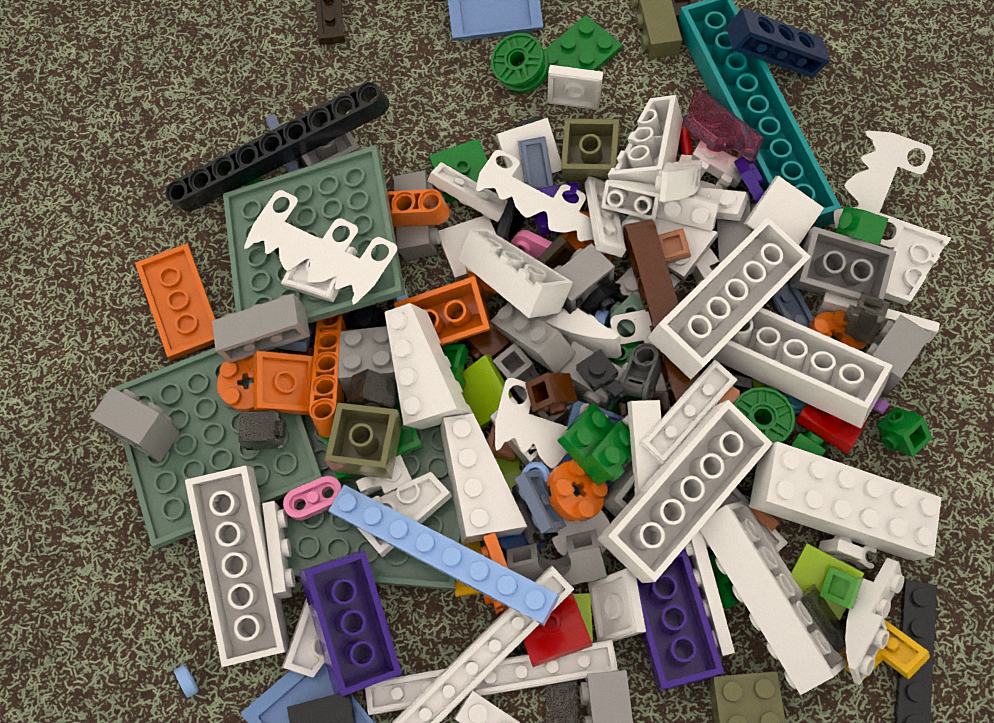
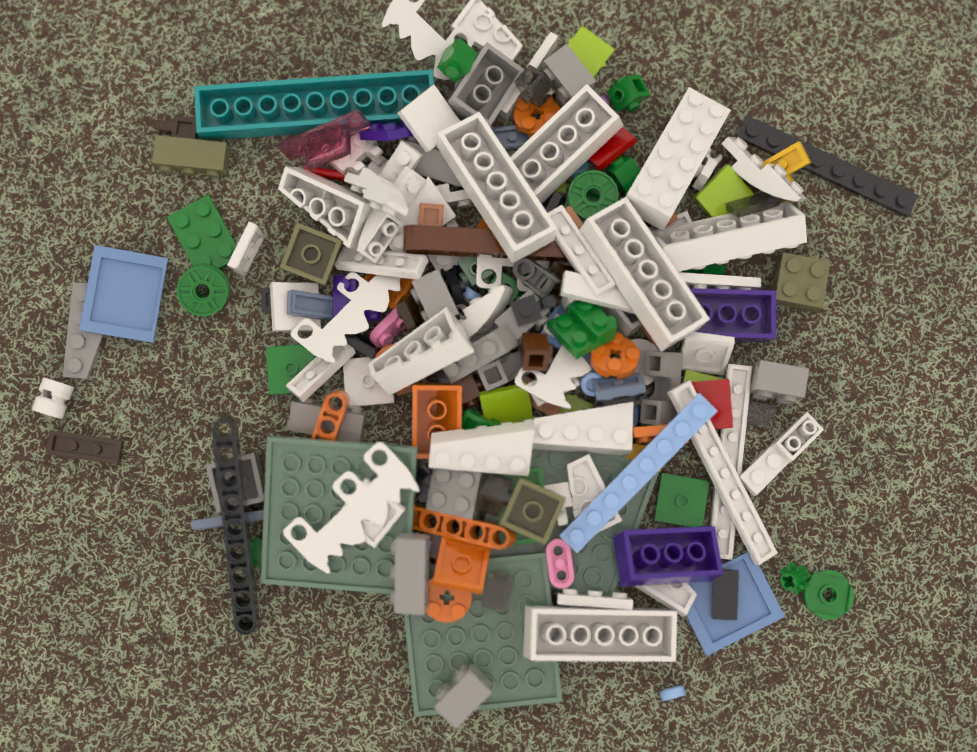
camera: 80 degrees left, 15 degrees up
(178, 301) = (347, 642): orange plate -> none
(426, 631) = (681, 500): none -> green plate
(777, 43) = (261, 64): dark blue brick -> none
(841, 587) = (736, 185): bright green plate -> none
(934, 378) = (590, 50): none -> lime piece

